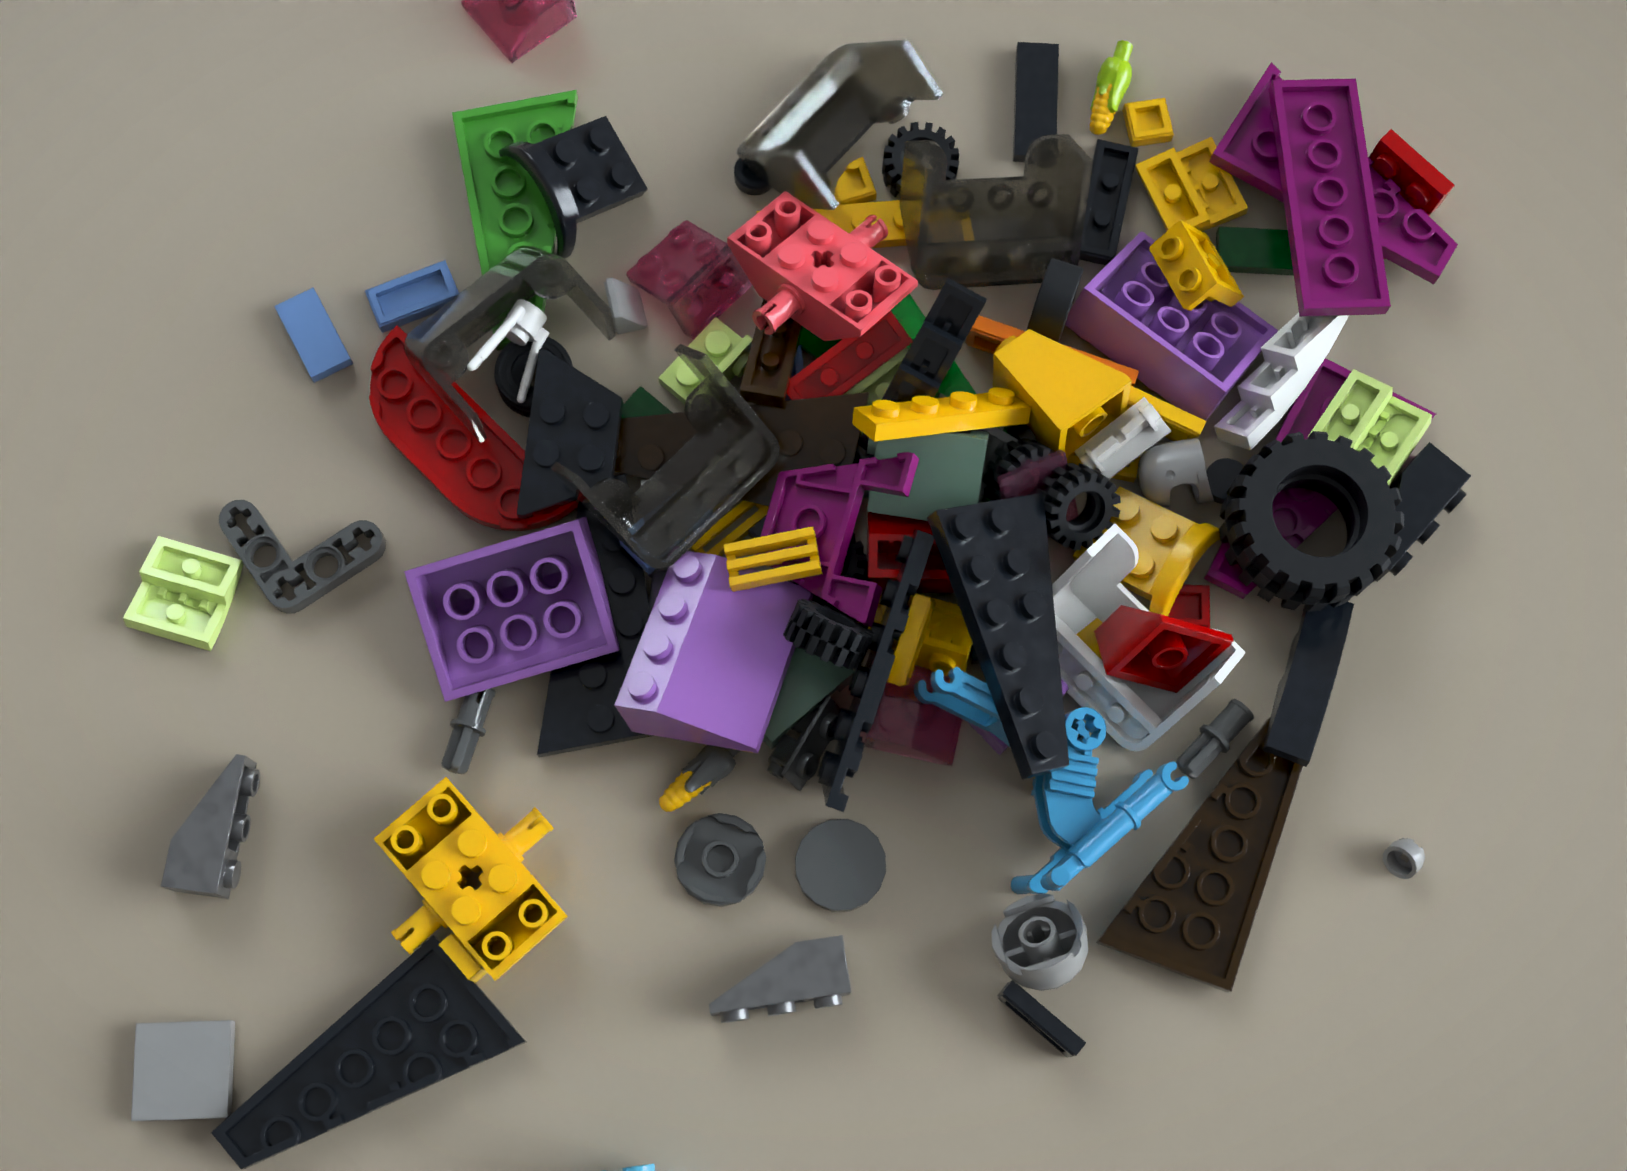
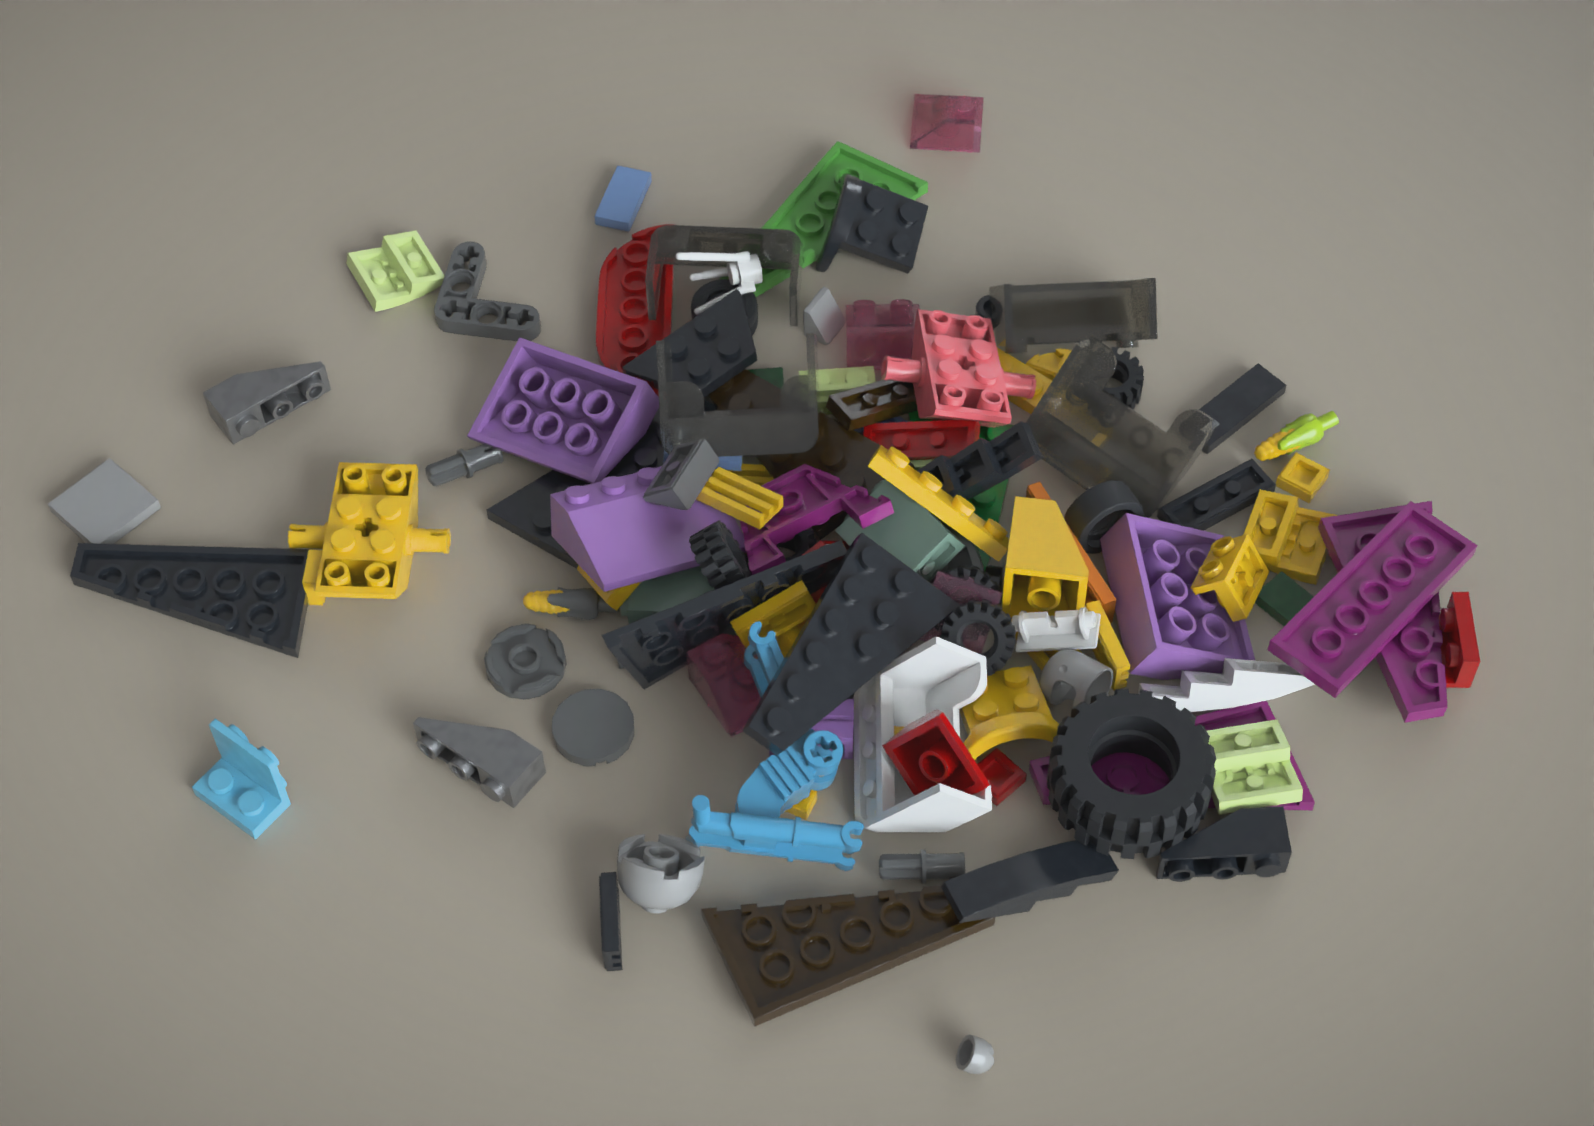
camera: 50 degrees right, 20 degrees down
(412, 296) = (695, 213): medium blue tile -> none
(707, 584) = (683, 475): none -> dark grey slope

